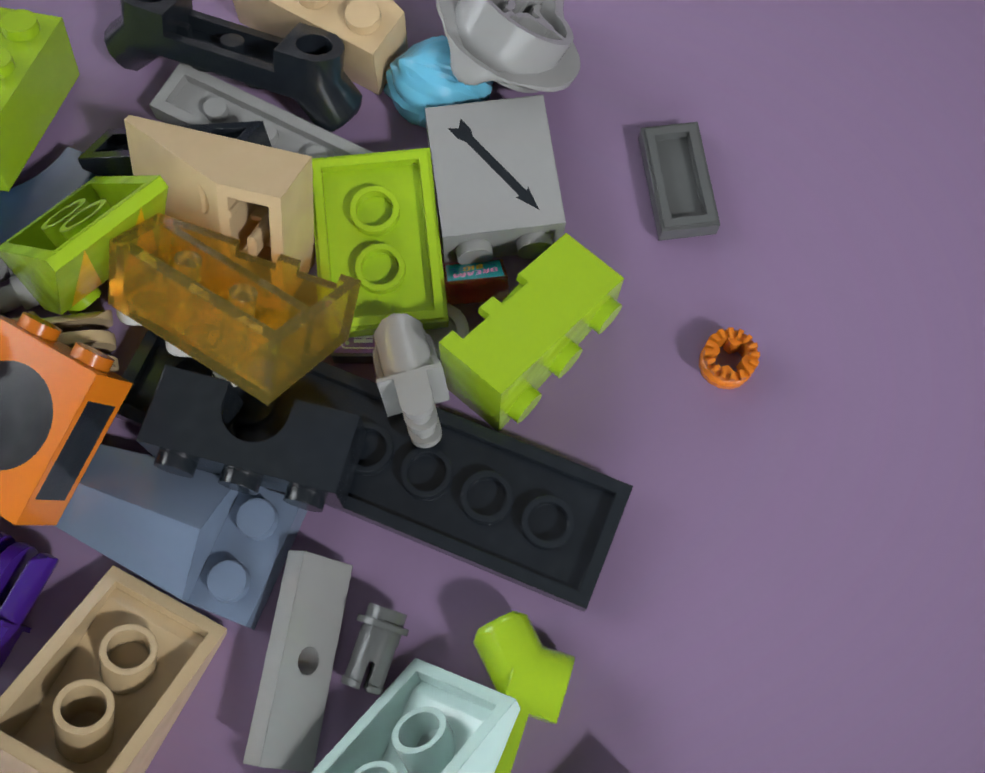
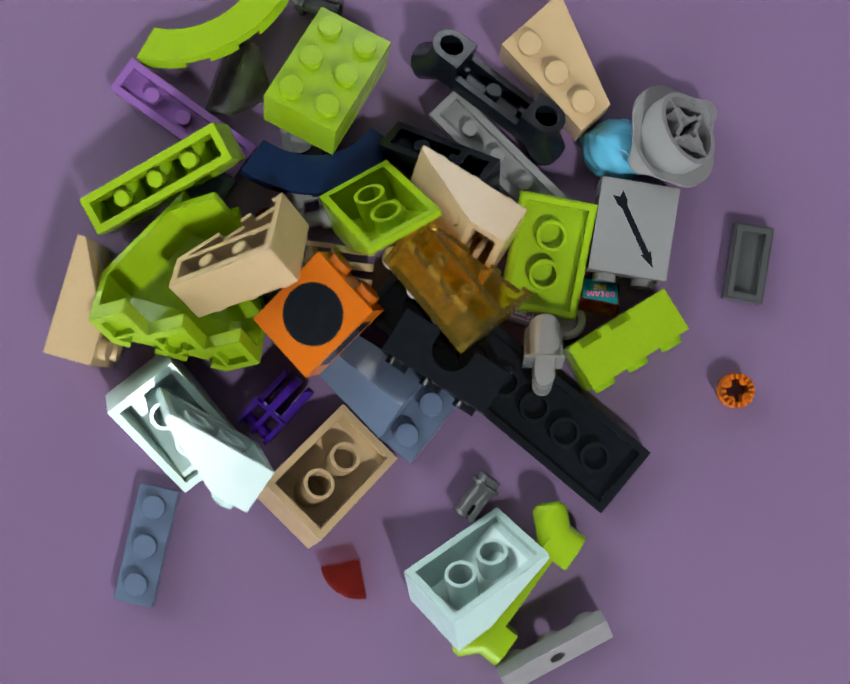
camera: 20 degrees right, 15 degrees up
(298, 663) = (434, 491): light grey tile -> none

